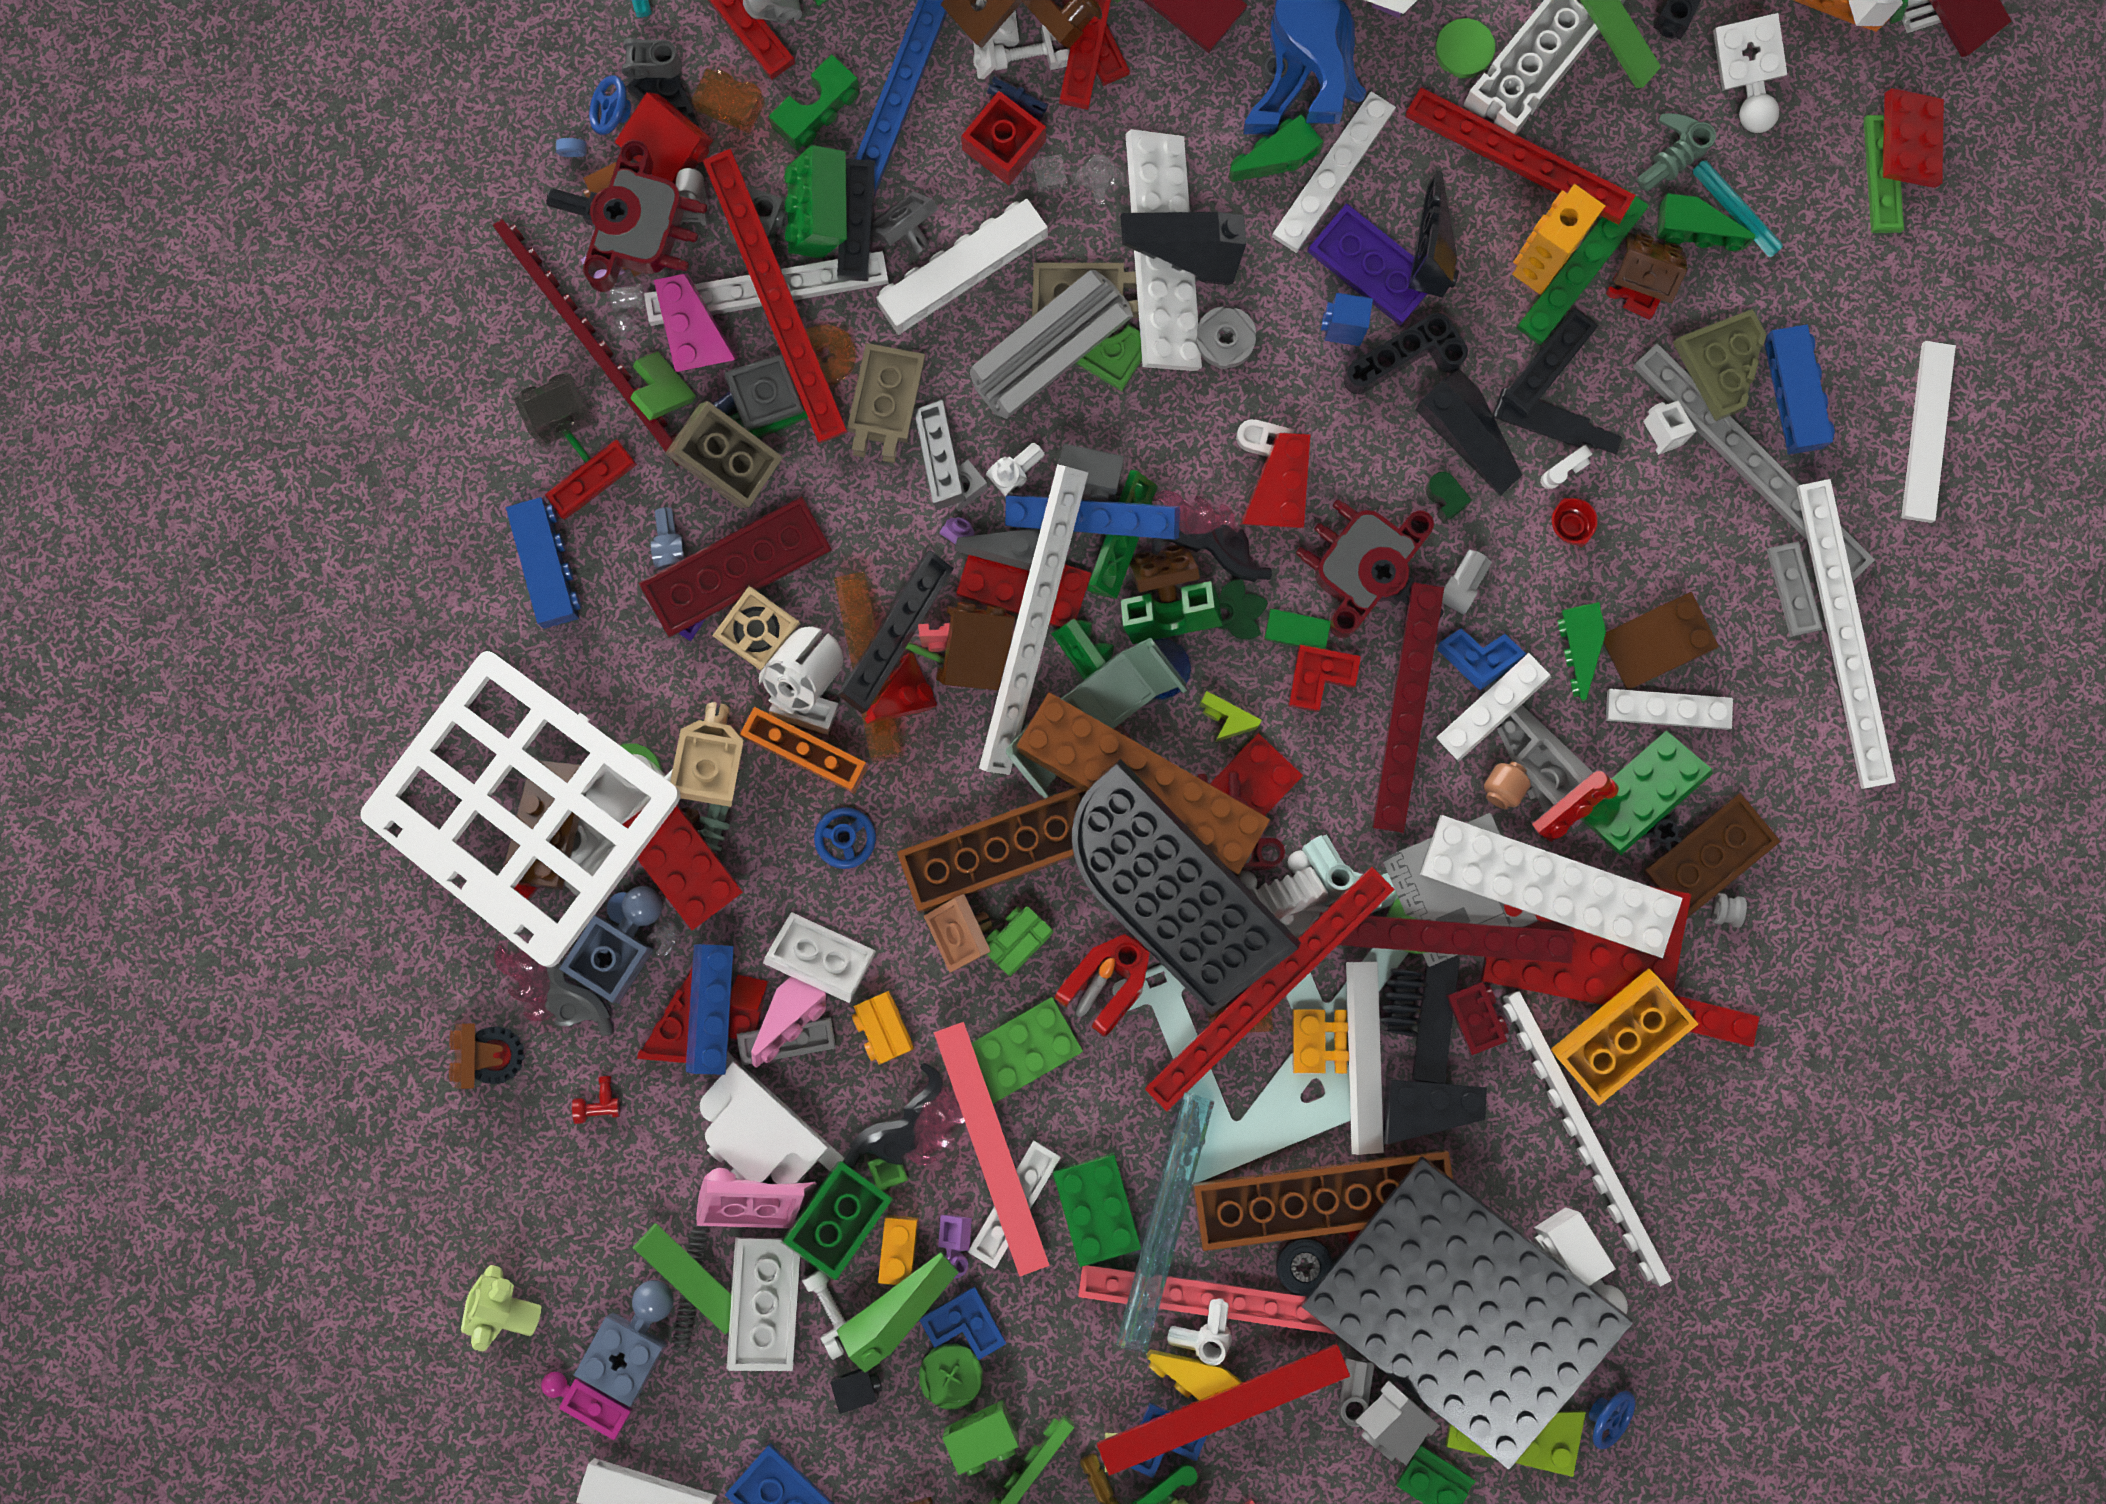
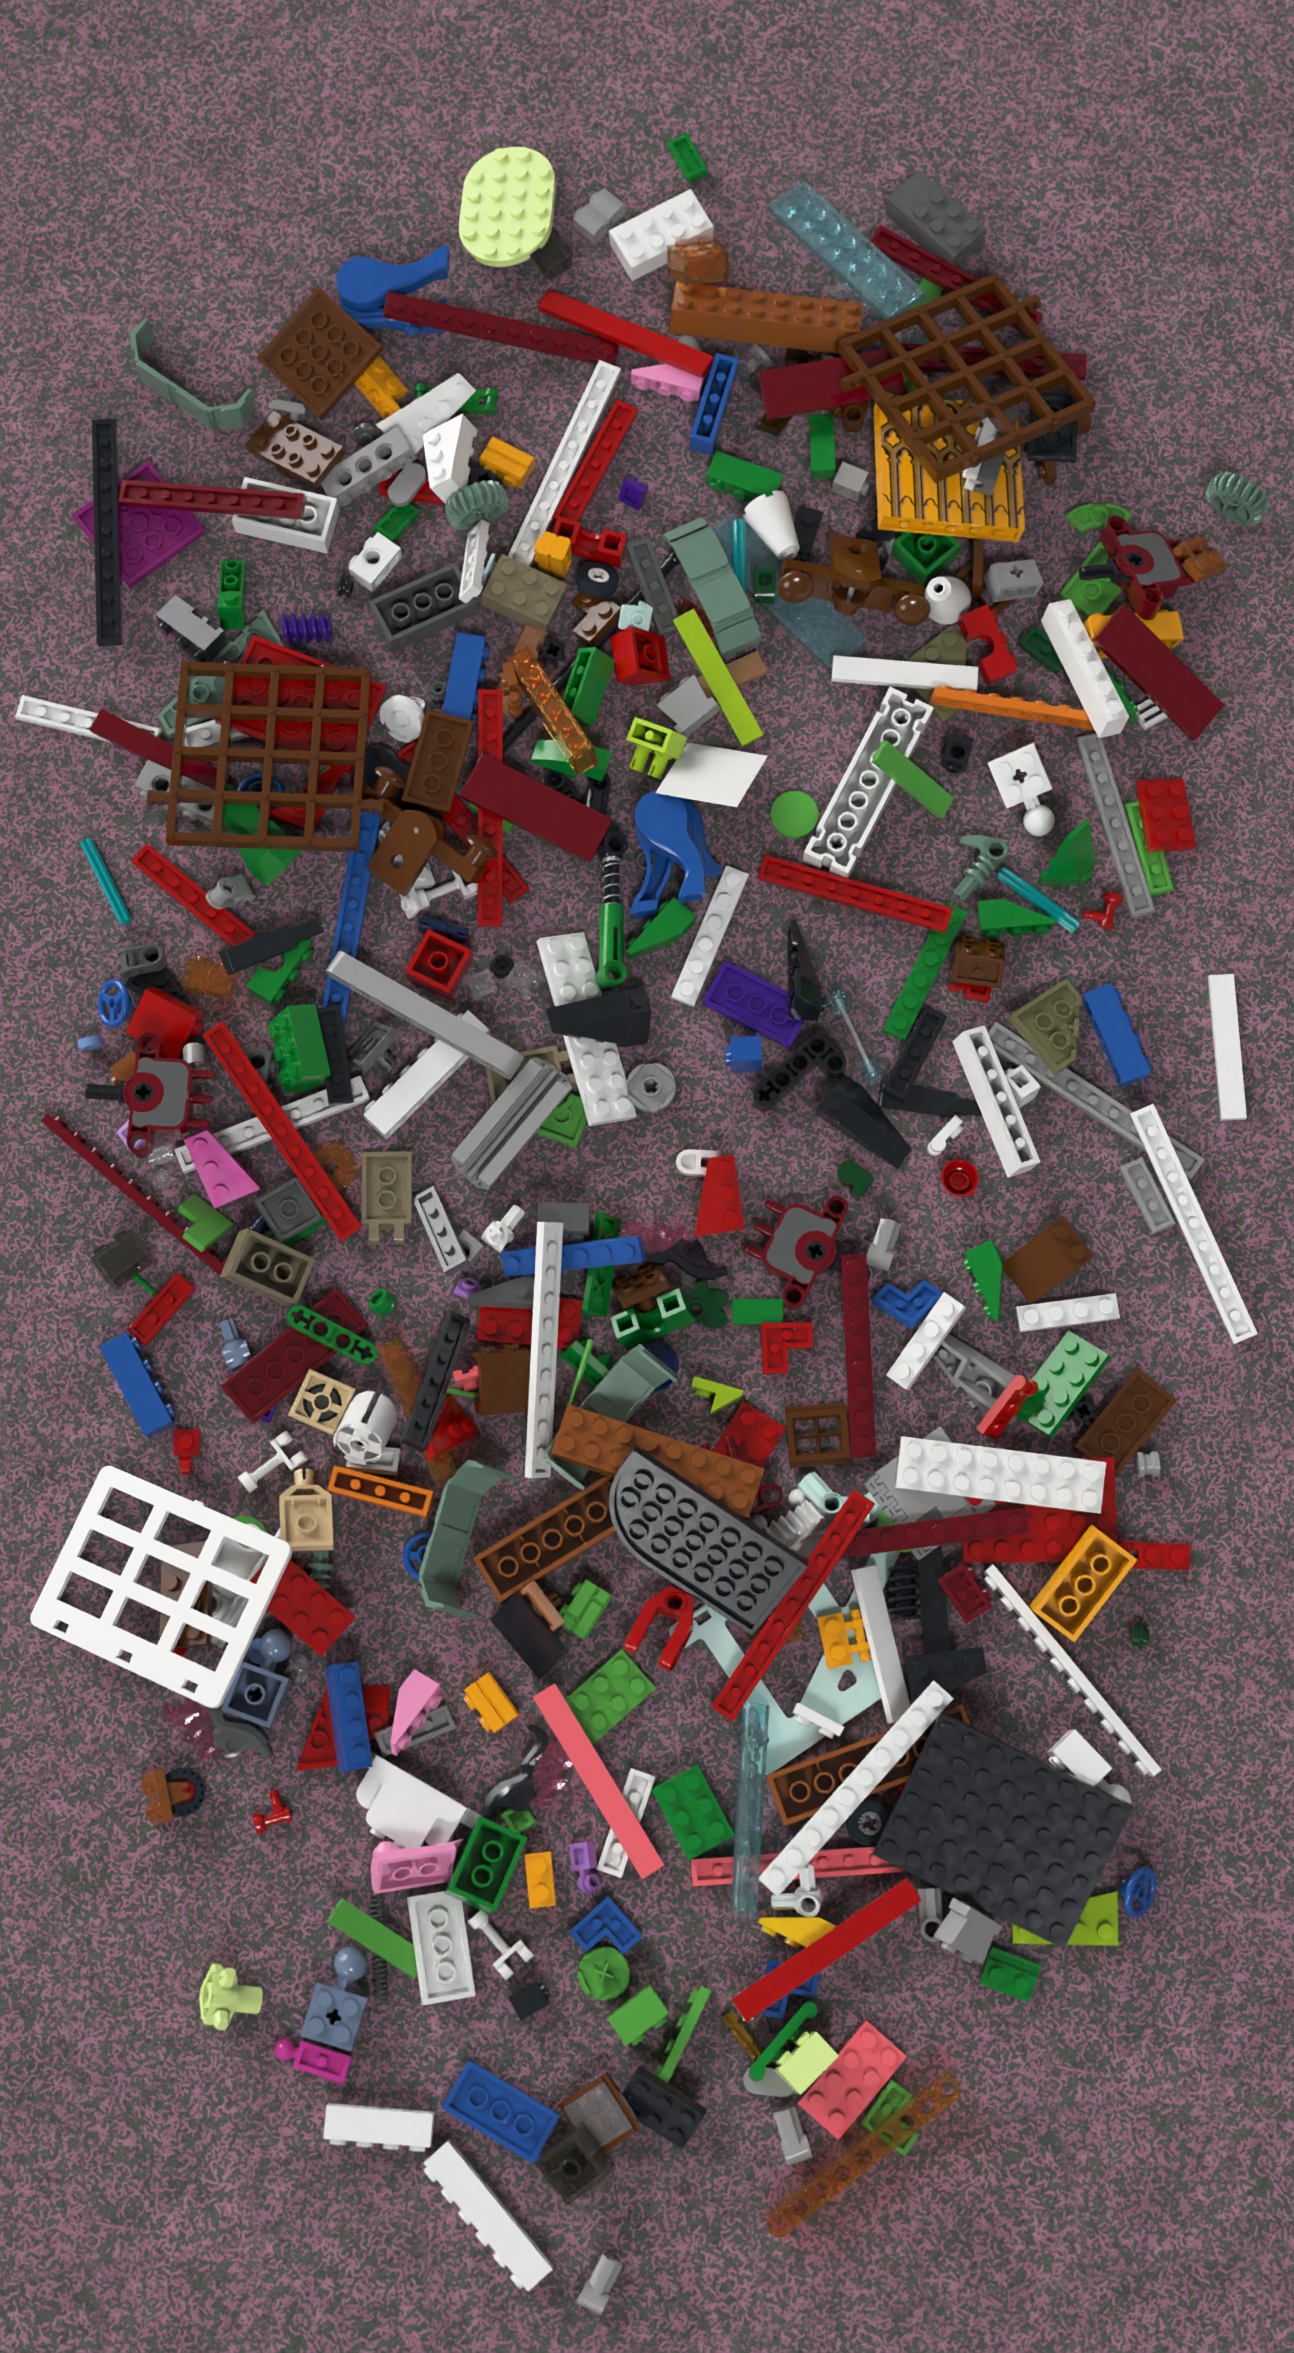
camera: 10 degrees left, 5 degrees down
(586, 646) = (186, 1445): none -> red plate
(653, 703) = (250, 1480): none -> white bar
(780, 555) = (330, 1338): none -> green beam
(804, 73) = (268, 945): none -> black piece
(819, 957) = (428, 1656): white tile -> none
(853, 526) = (382, 1302): none -> green tile
(879, 818) = (452, 1535): none -> sand green windscreen
(887, 1321) = (547, 1931): bright green wedge -> none
(945, 957) = (528, 1635): none -> black tile
(974, 193) = (424, 1015): none -> light grey beam
(1071, 657) = (578, 1378): none -> bright green axle
(1074, 150) = (497, 962): none -> black plate
(1105, 971) = (660, 1618): light grey piece -> none
(1222, 120) = (611, 915): none -> piece
(1278, 1141) = (827, 1727): none -> white plate
(1298, 1225) = (855, 1788): none -> white plate
(1337, 820) = (817, 1458): none -> reddish brown piece
(1473, 288) = (841, 1006): none -> clear light blue axle
(1507, 785) = (950, 1401): nougat head -> none
(1556, 238) = (895, 958): light orange brick -> none
(1638, 438) = (996, 1101): none -> white brick
(1677, 1114) = (1140, 1636): none -> dark green plate
(1795, 167) = (1073, 861): none -> green wedge
(1827, 227) = (1106, 918): none -> red piece
(1848, 138) = (1115, 825): none -> light grey tile

